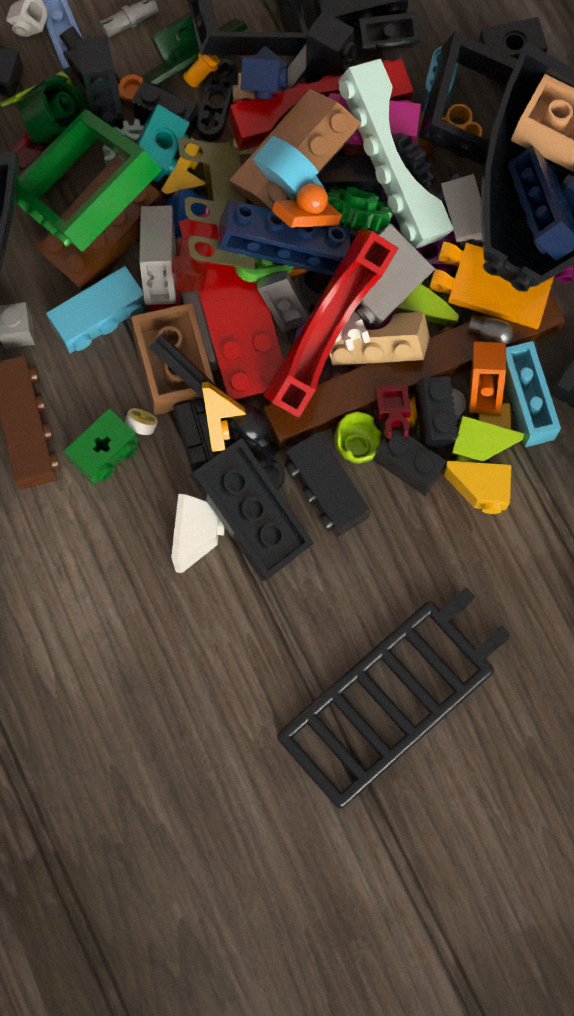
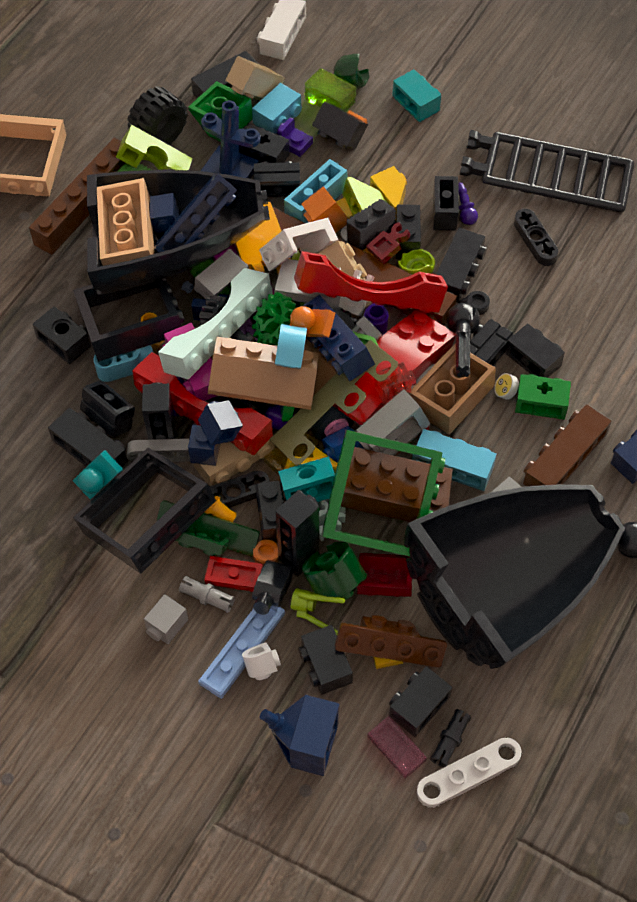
camera: 125 degrees left, 15 degrees down
(131, 46) = (232, 573): none -> red plate
(157, 479) = (534, 352): none -> black brick
(194, 531) = (554, 308): white slope -> none
(219, 406) = (476, 320): yellow slope -> none
(251, 509) = (512, 284): black plate -> none
(288, 589) = (536, 246): none -> black beam
(395, 554) = (468, 214): none -> dark purple bar
(418, 525) = (445, 203): none -> black brick
(447, 290) = (308, 237): none -> white panel
(492, 330) = (292, 218): flat silver cylinder -> none

